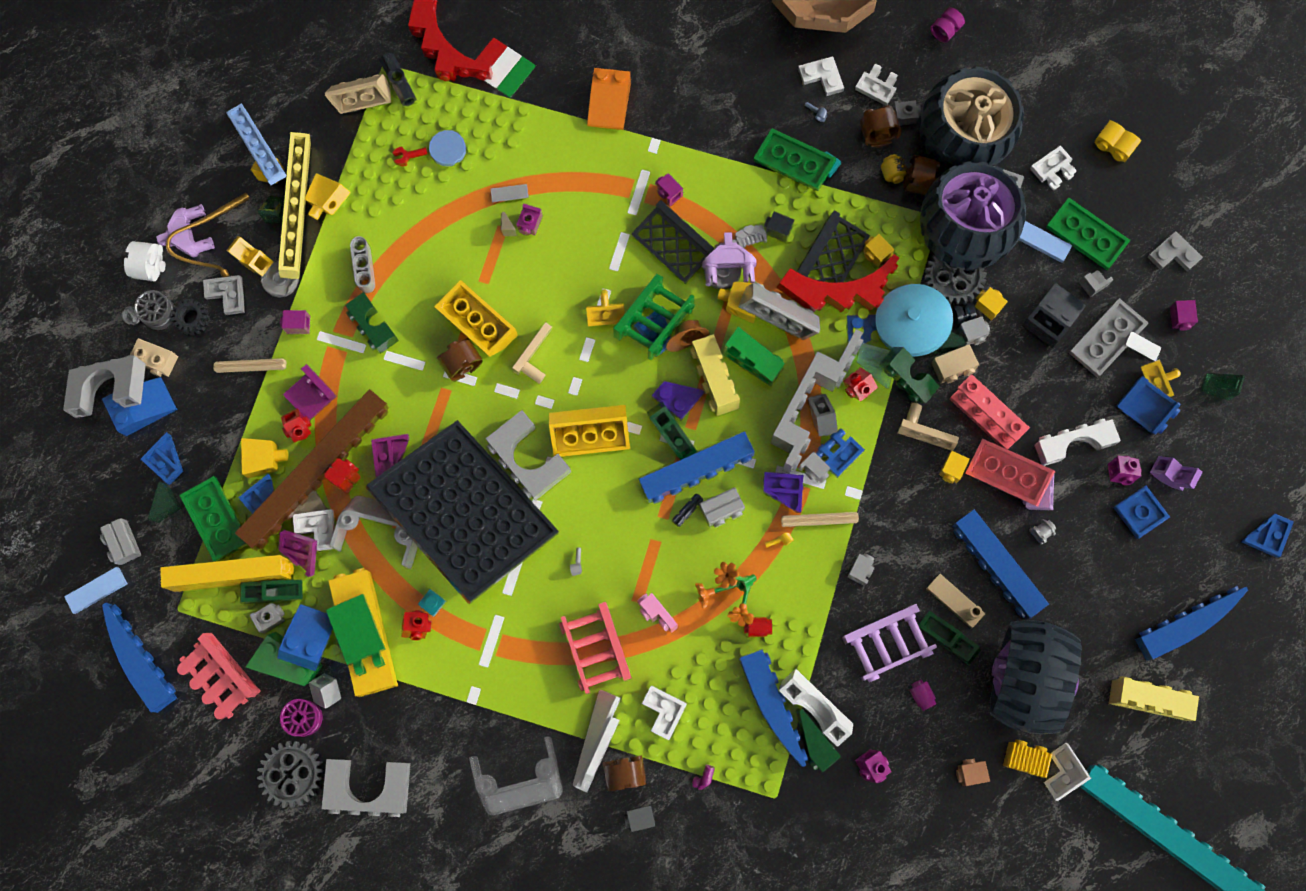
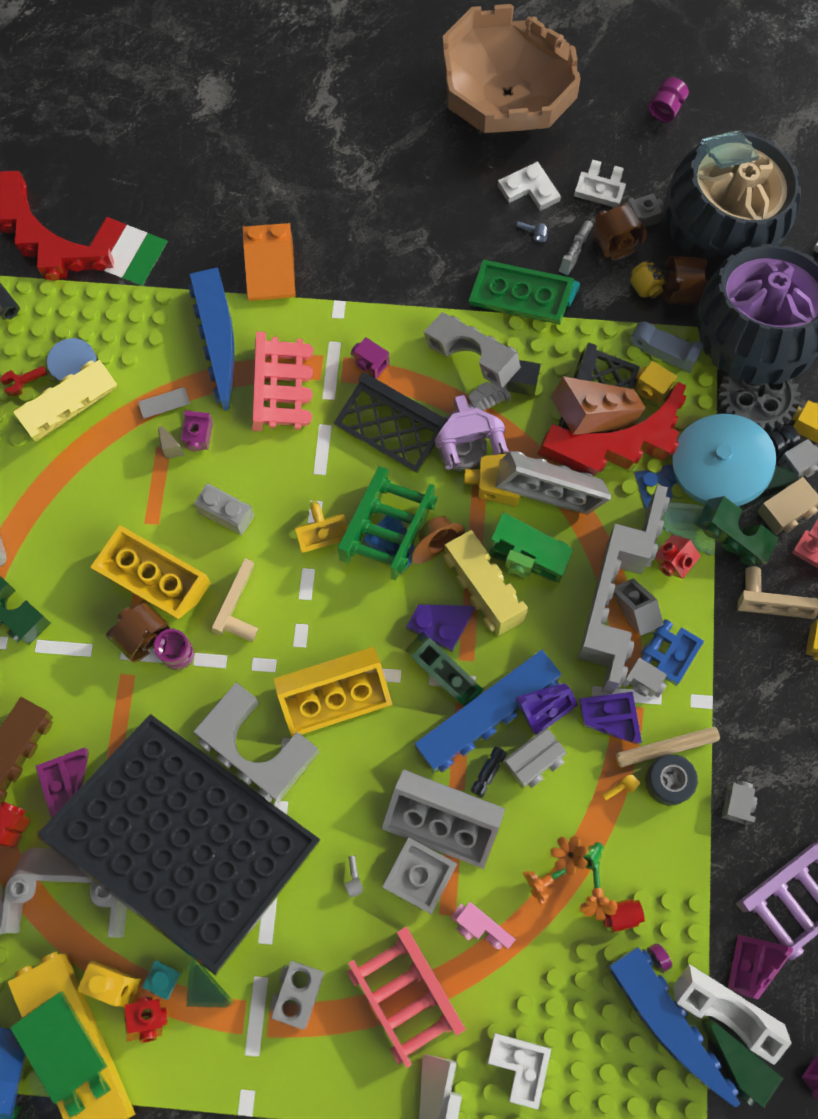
camera: 15 degrees left, 5 degrees down
(396, 597) = (108, 983): none -> yellow torso
(438, 178) = (65, 400): none -> light yellow wedge
(459, 615) = (204, 989): none -> clear green slope
(482, 377) = (174, 649): none -> magenta wheel
(527, 633) = (304, 996): none -> light grey brick
(538, 283) = (224, 509): none -> light grey brick
(558, 144) = (216, 329): none -> blue slope
(592, 202) = (274, 393): none -> coral fence
(623, 570) = (419, 875): none -> light grey plate
(647, 535) = (443, 818): none -> light grey slope
(732, 184) = (450, 336): none -> light grey arch
(738, 472) = (546, 706): none -> dark purple wing
(742, 366) = (519, 564): none -> bright green plate
(776, 660) = (659, 957): none -> magenta tile
(815, 542) = (680, 779): none -> black wheel
(826, 261) = (596, 406): none -> dark orange wedge
(840, 139) = (570, 259): none -> light grey piece
(843, 680) = (756, 965): none -> magenta wing
(894, 224) = (666, 346): none -> sand blue leg
(973, 82) = (730, 149): none -> clear light blue piece

